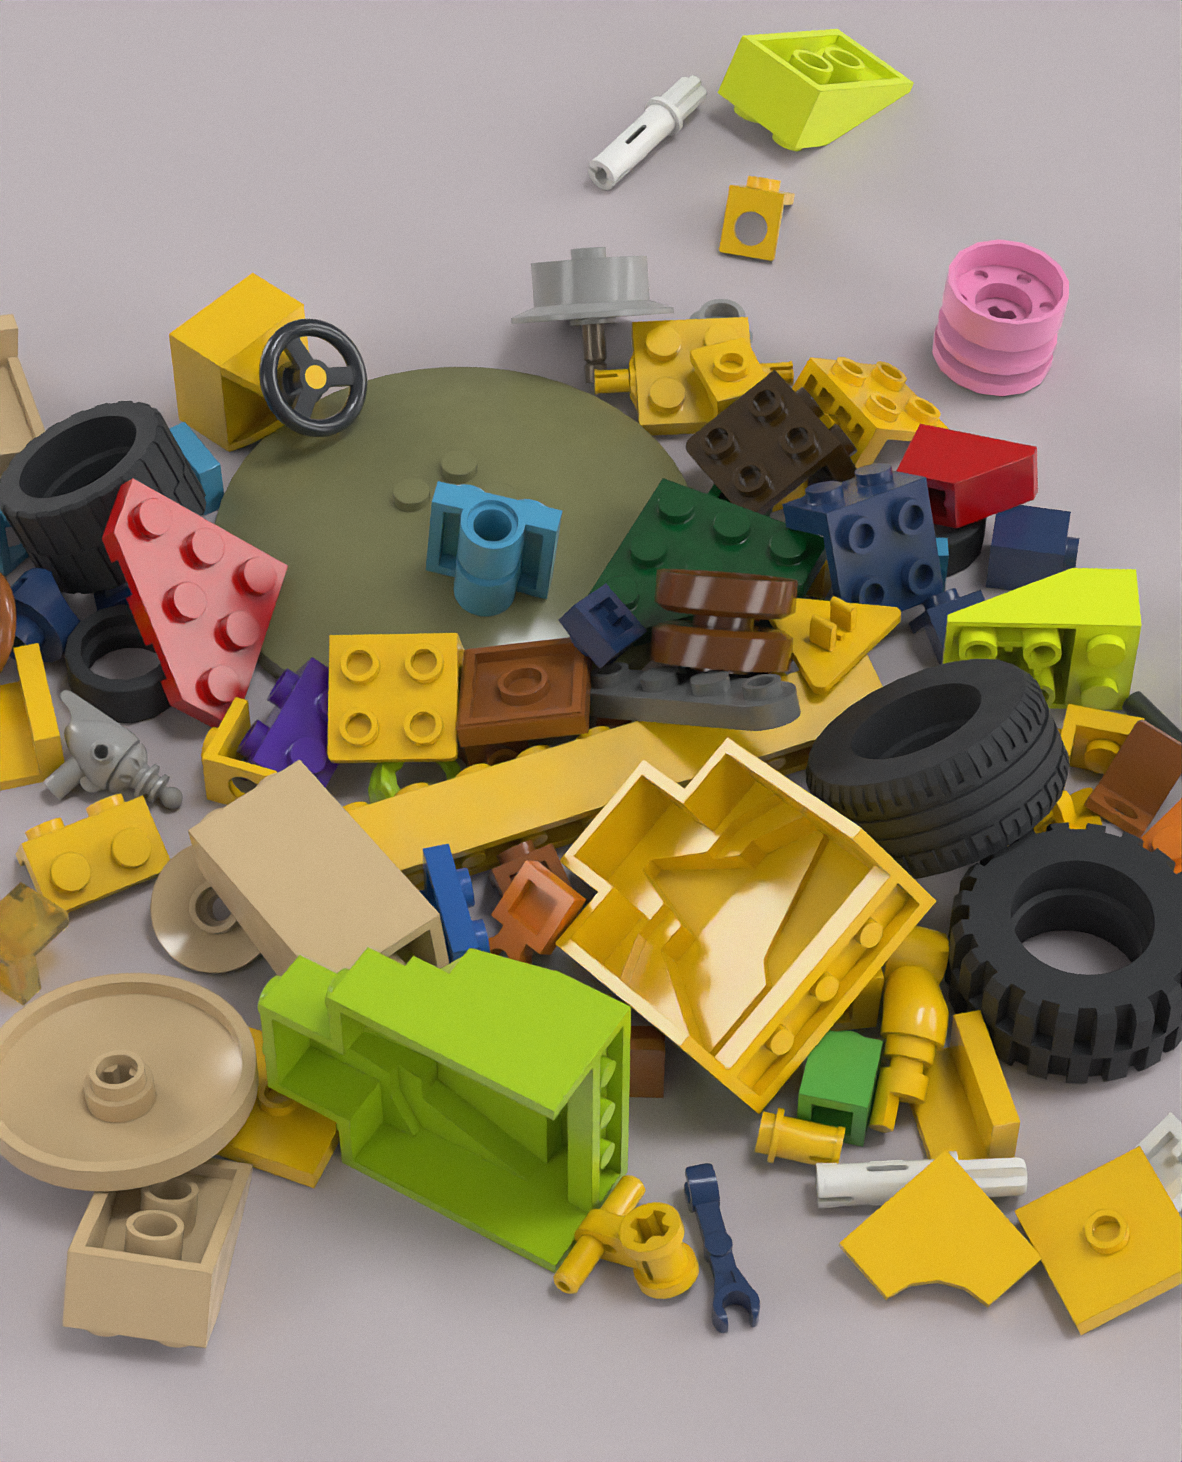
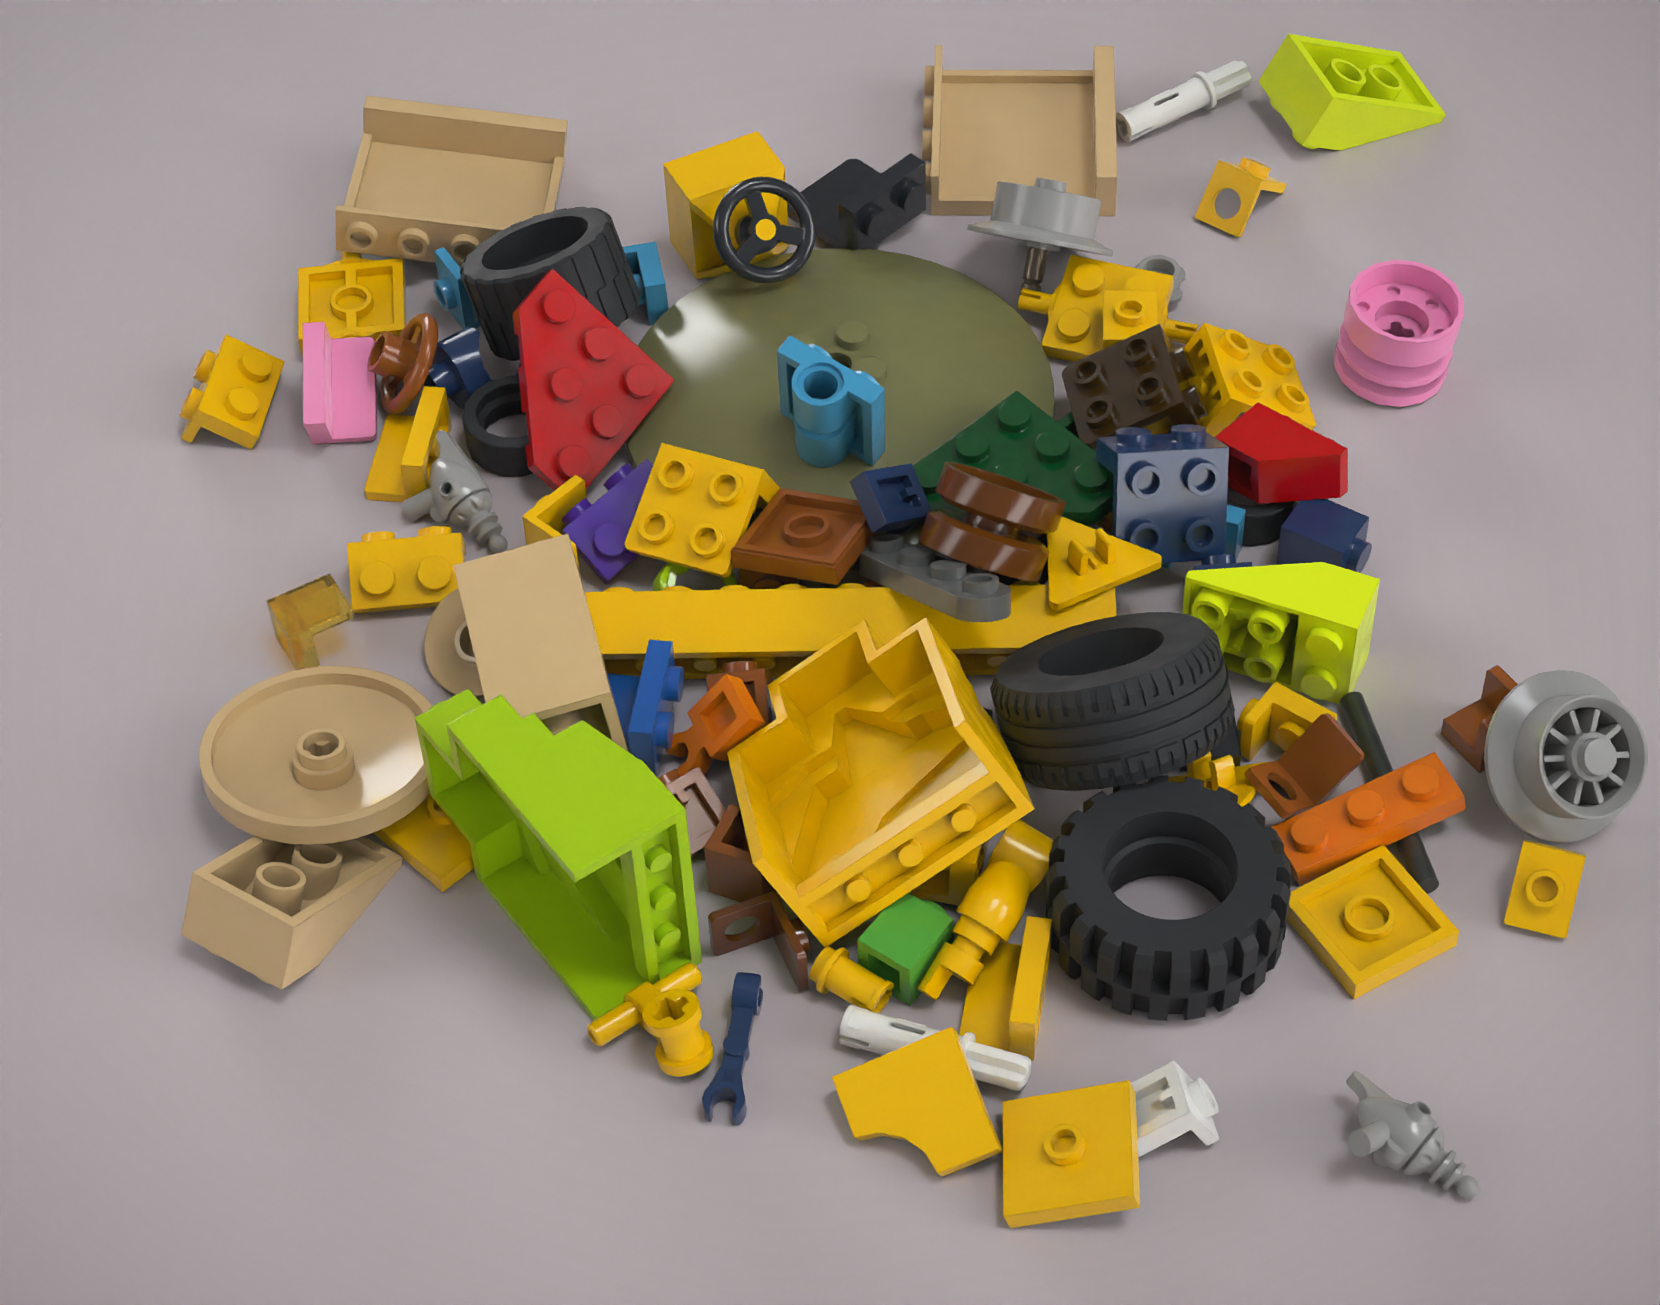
camera: 25 degrees right, 0 degrees up
(380, 322) = (862, 206): none -> black bracket
(498, 203) = (1019, 129): none -> tan panel
(708, 1112) = (769, 923): none -> reddish brown bracket

